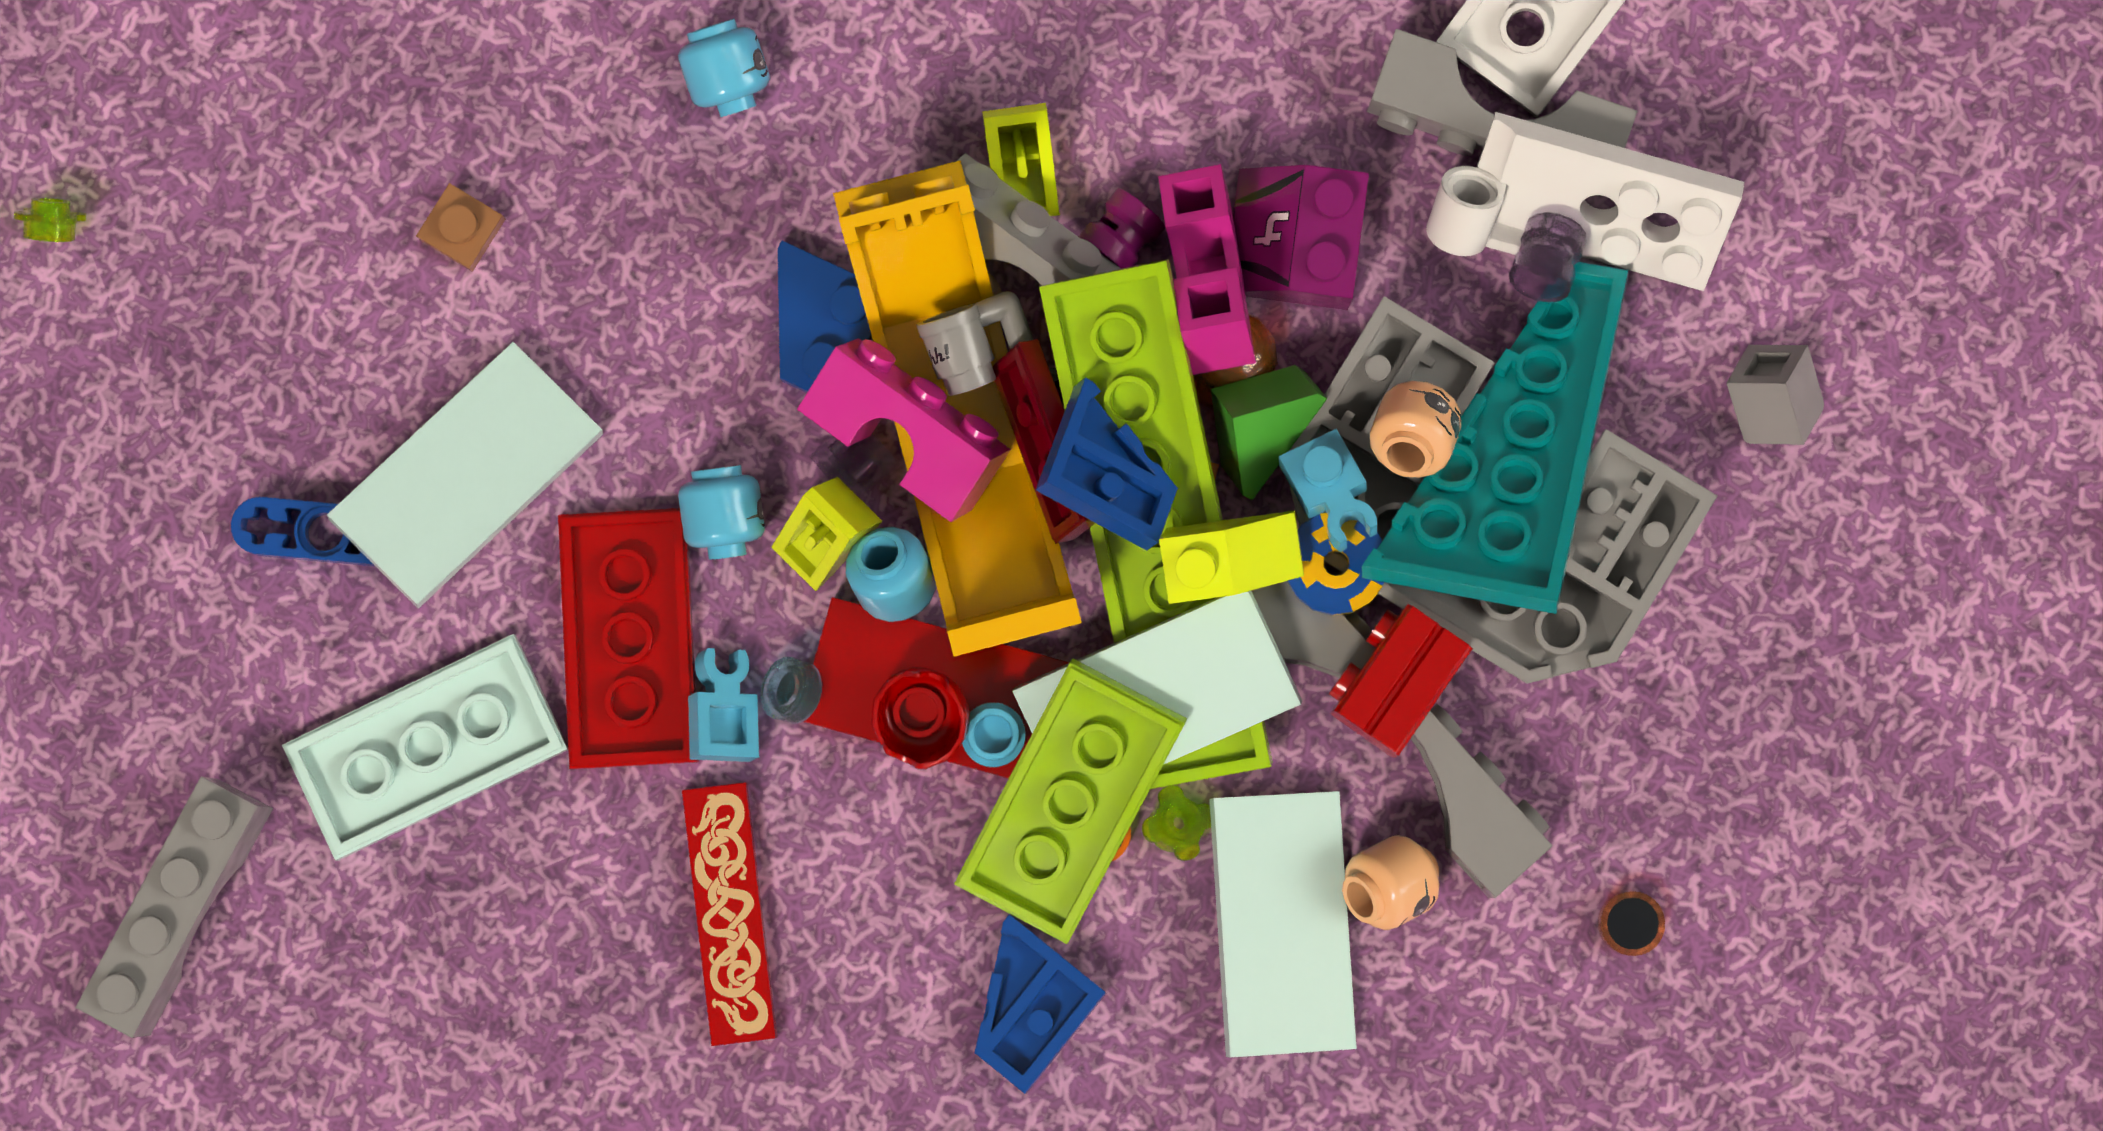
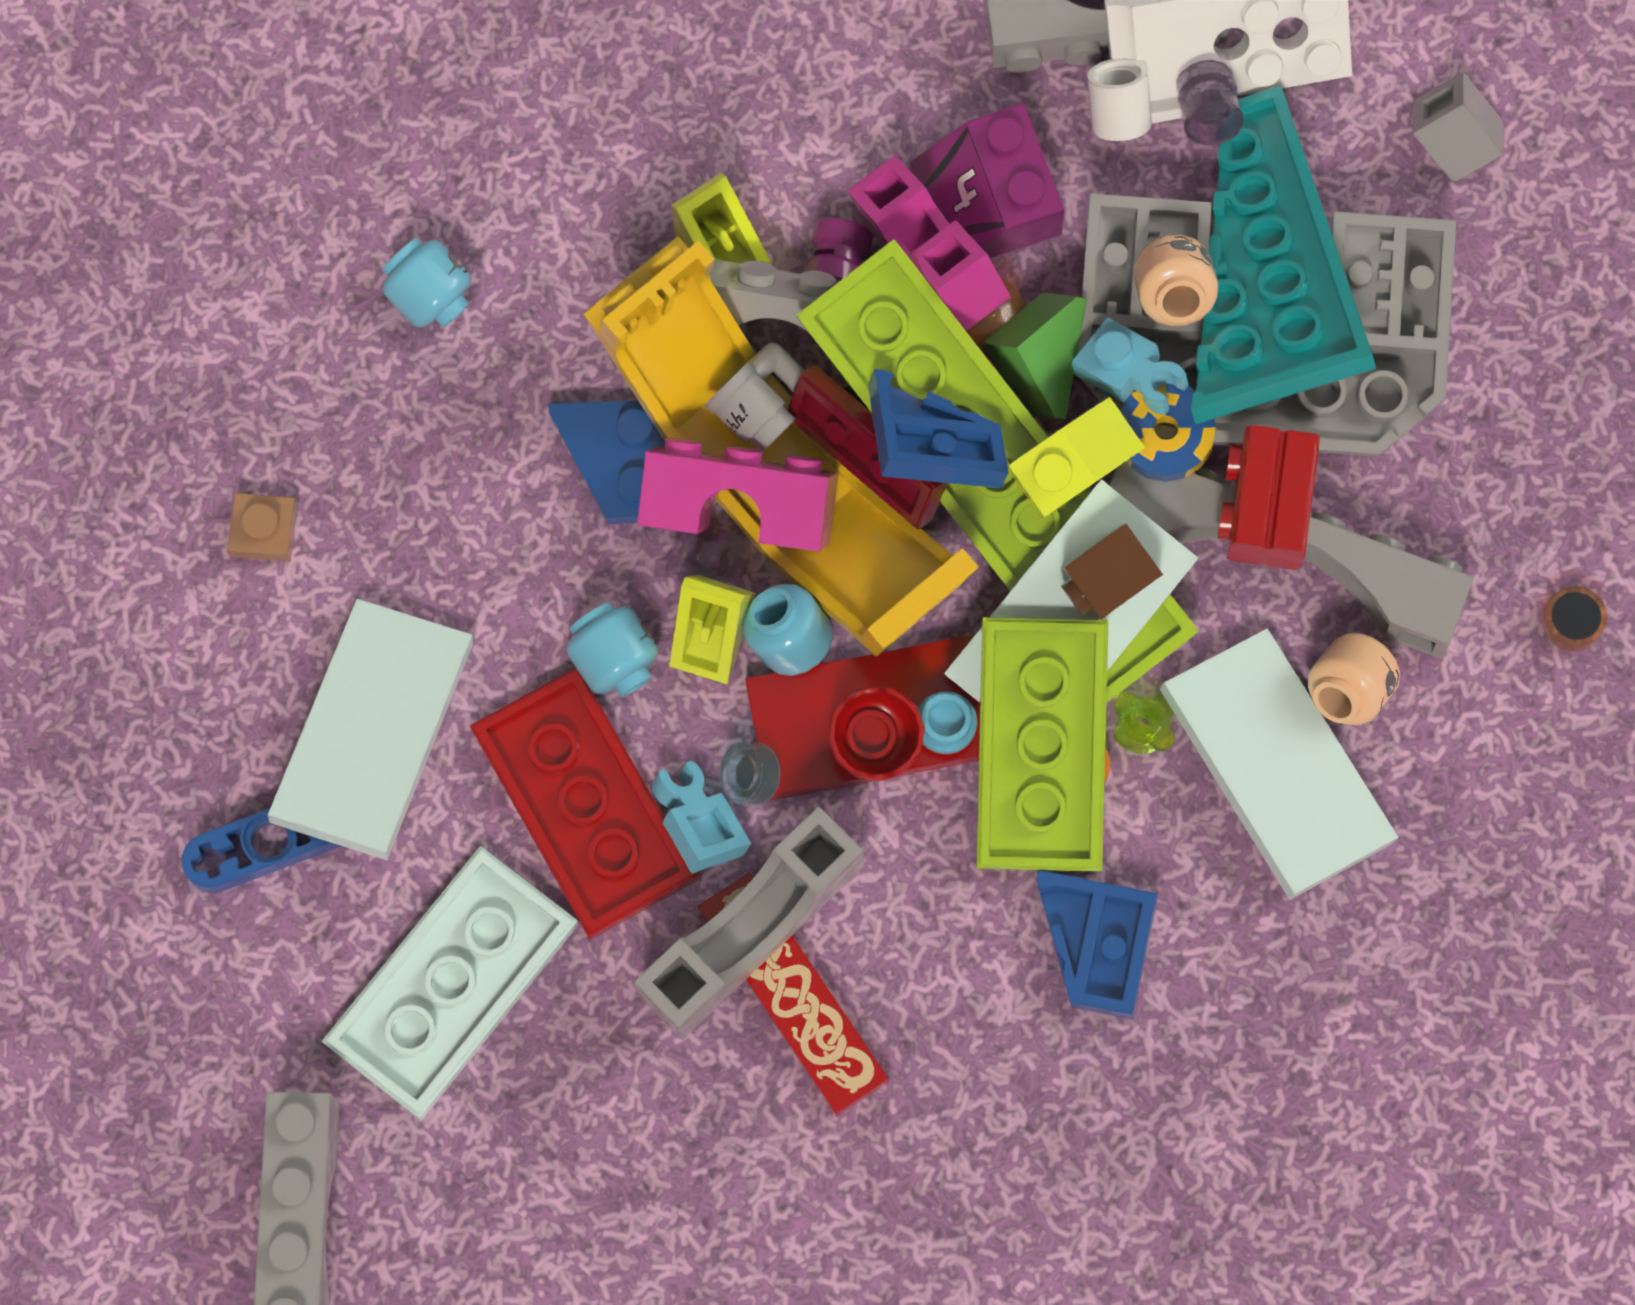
camera: 25 degrees left, 10 degrees down
(712, 840) = (725, 951): none -> light grey arch
(1206, 682) = (1109, 573): none -> reddish brown brick

